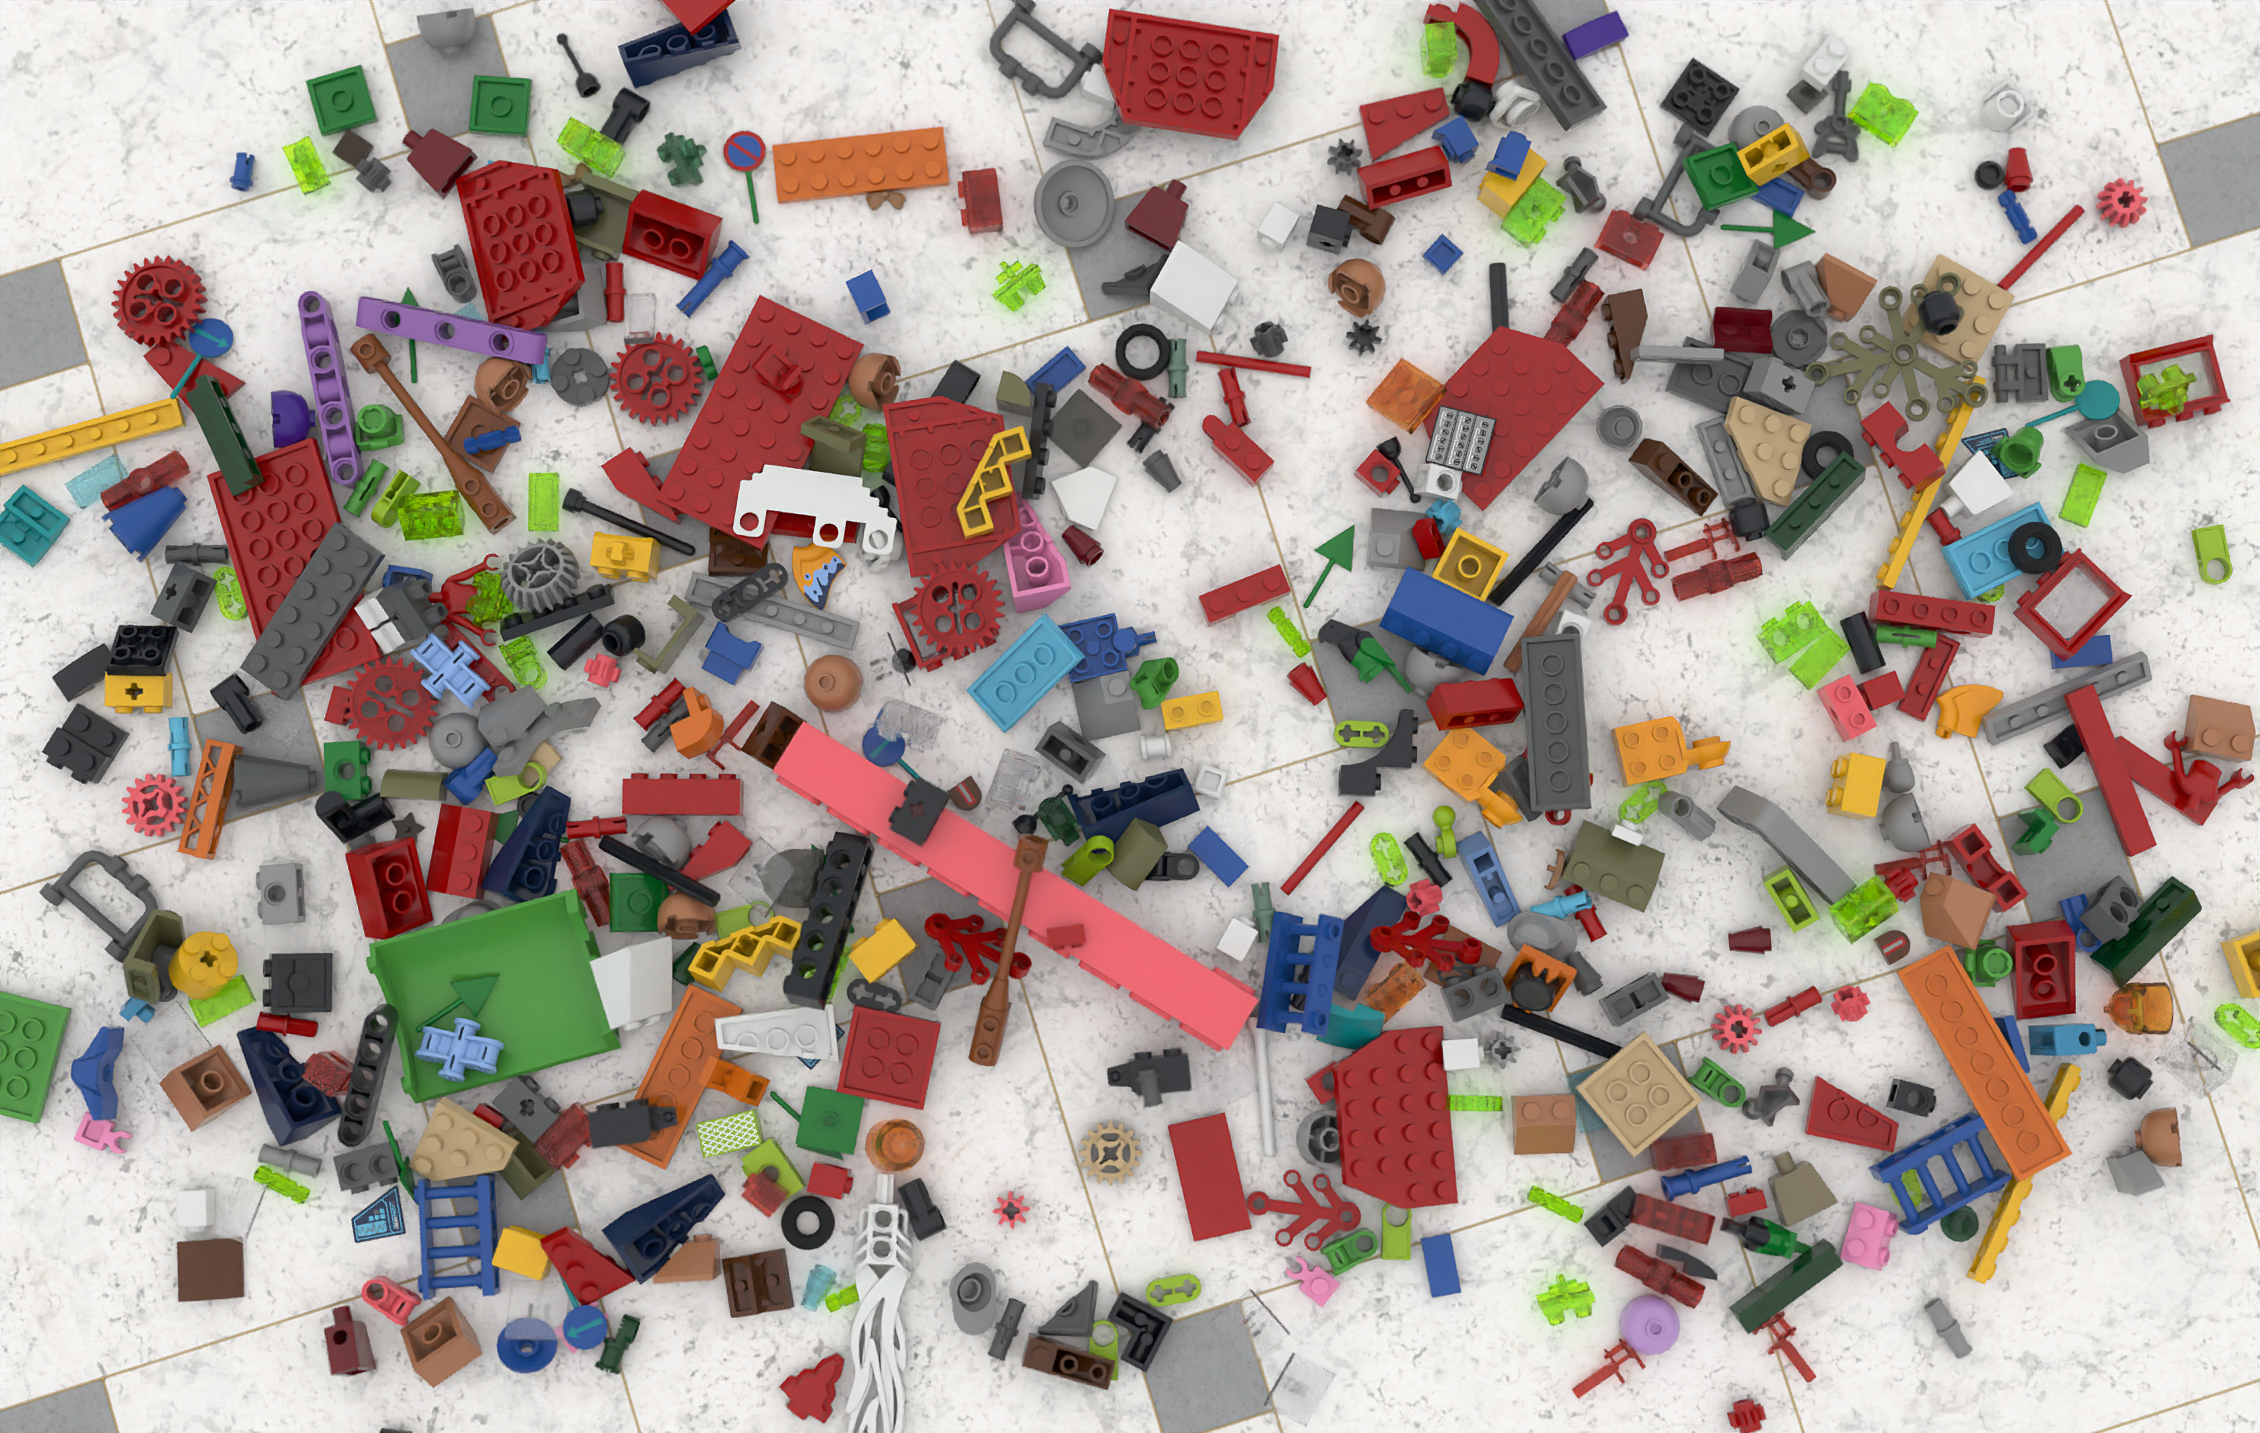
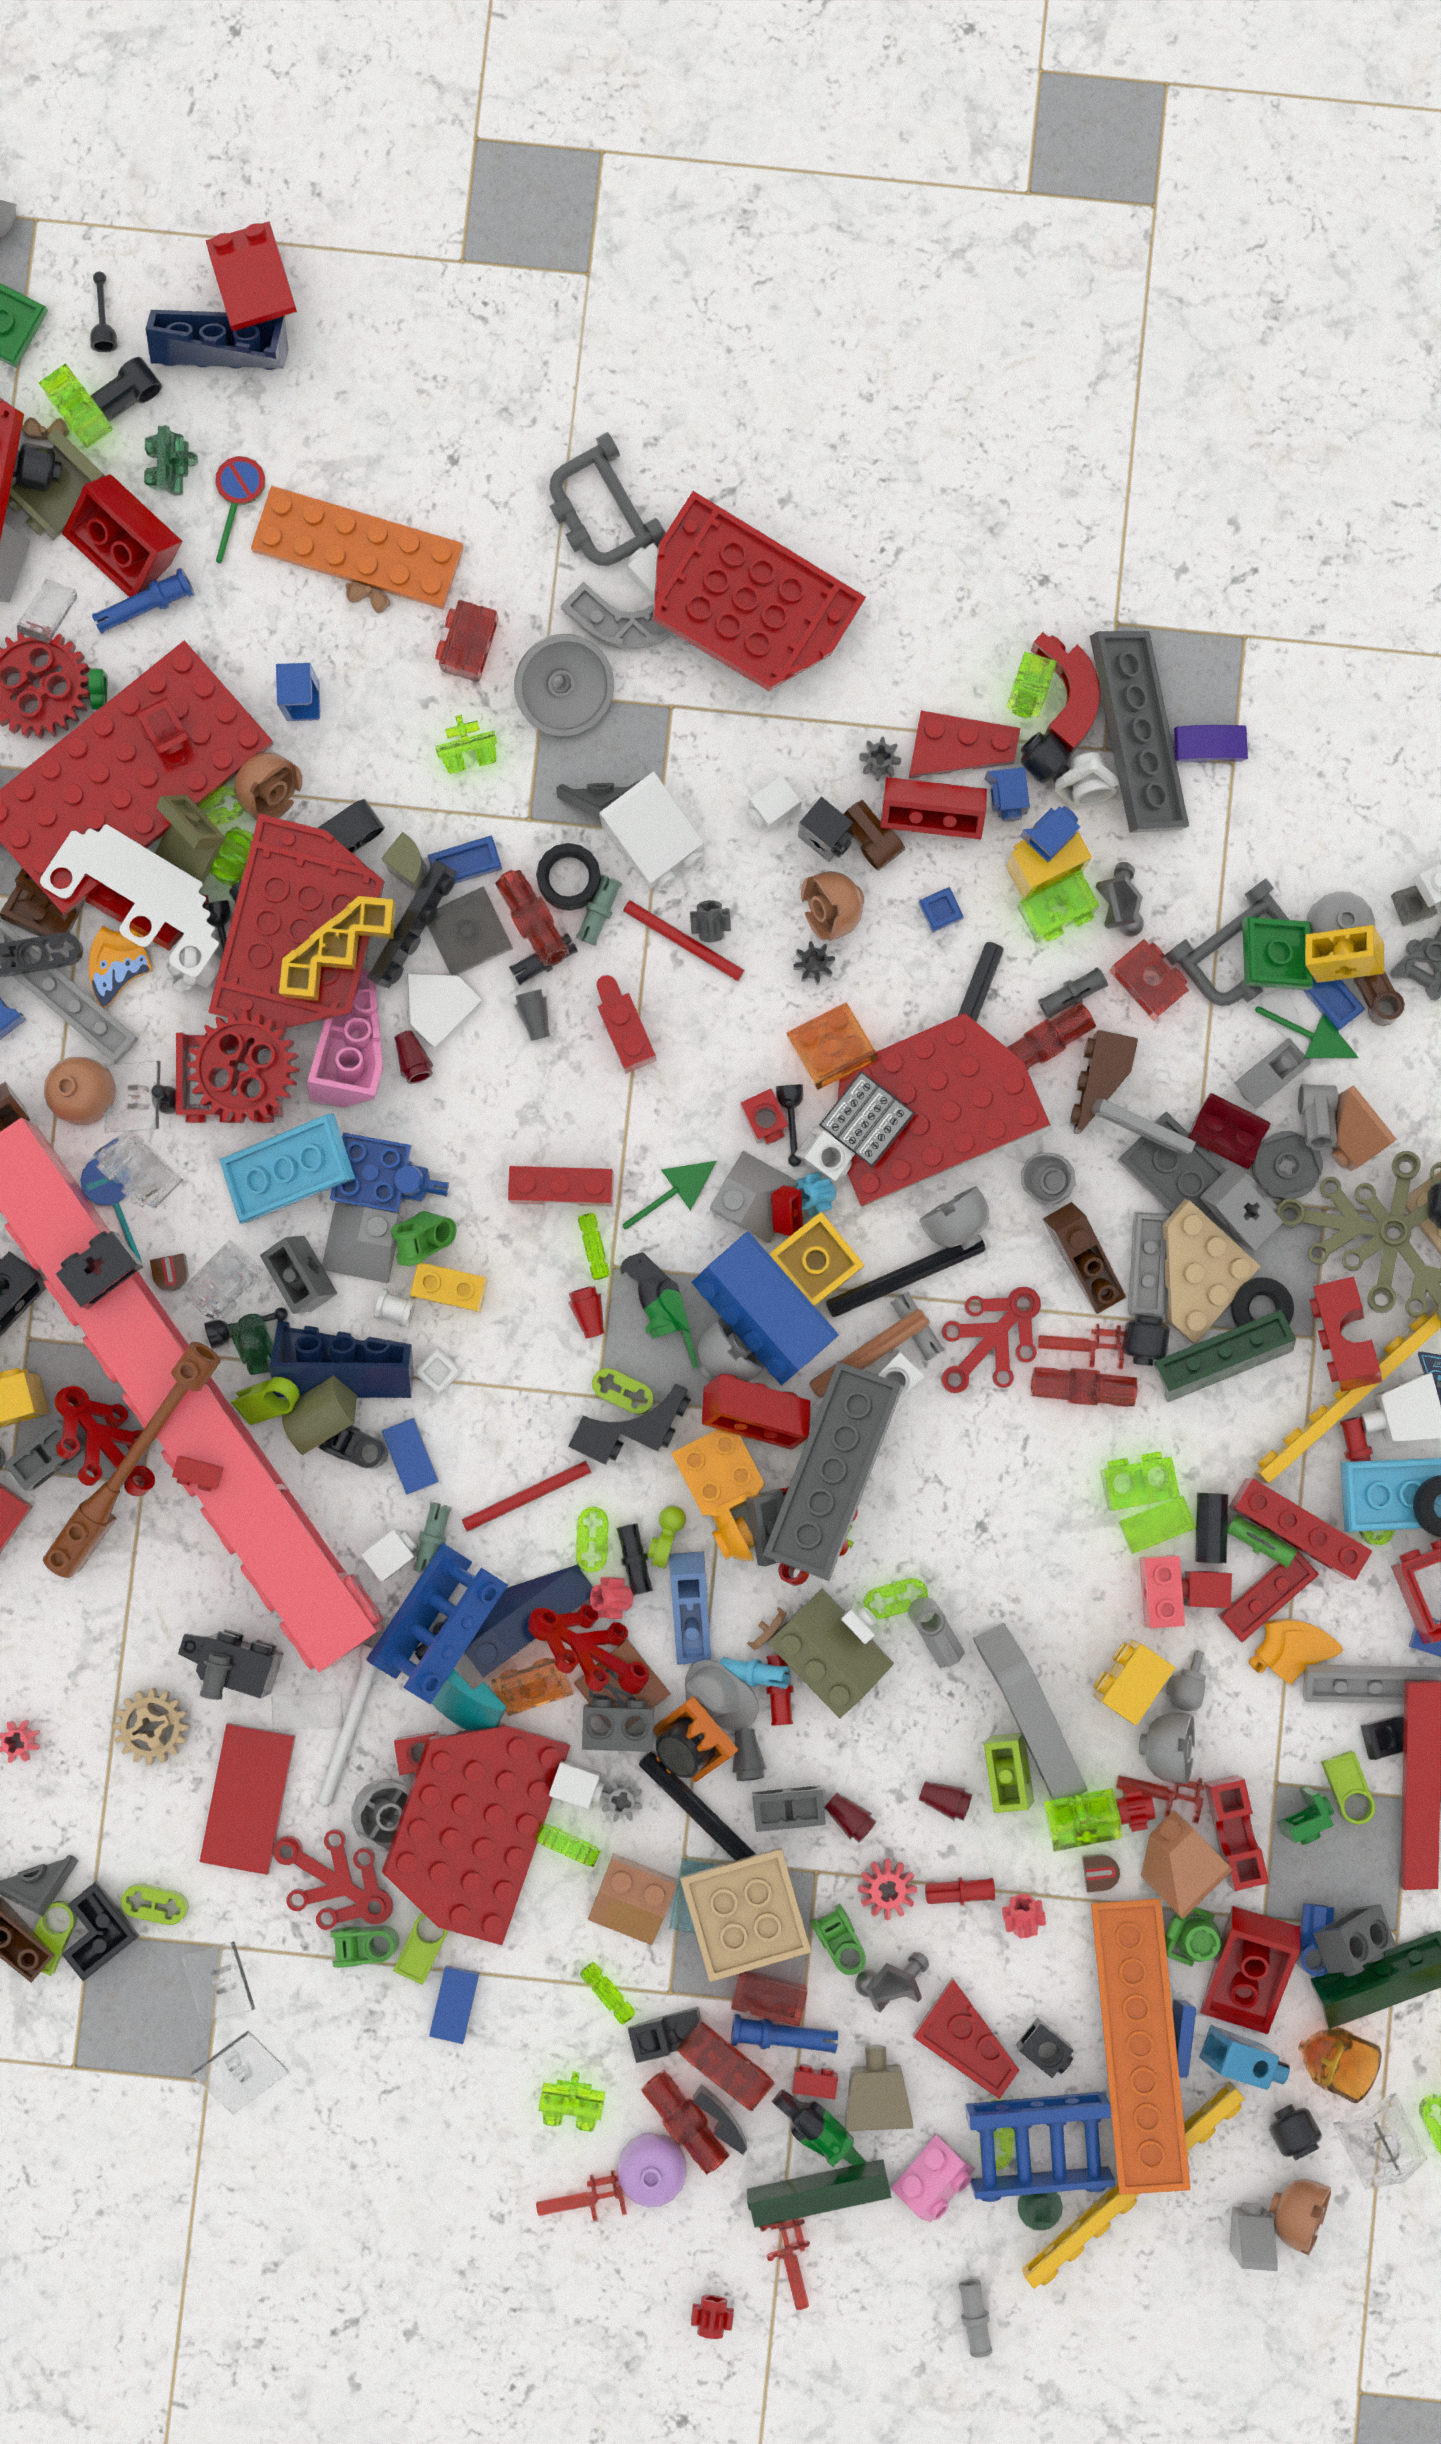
camera: 25 degrees right, 0 degrees up
(615, 292) = (34, 571): red pin -> none
(1160, 216) = (653, 737): dark red torso -> none
(1234, 397) = (646, 967): red pin -> none
(1316, 1283) = (312, 1964): bright pink plate -> none
(1659, 751) = (934, 1549): light orange brick -> none
(1699, 97) = (1295, 858): black tile -> none

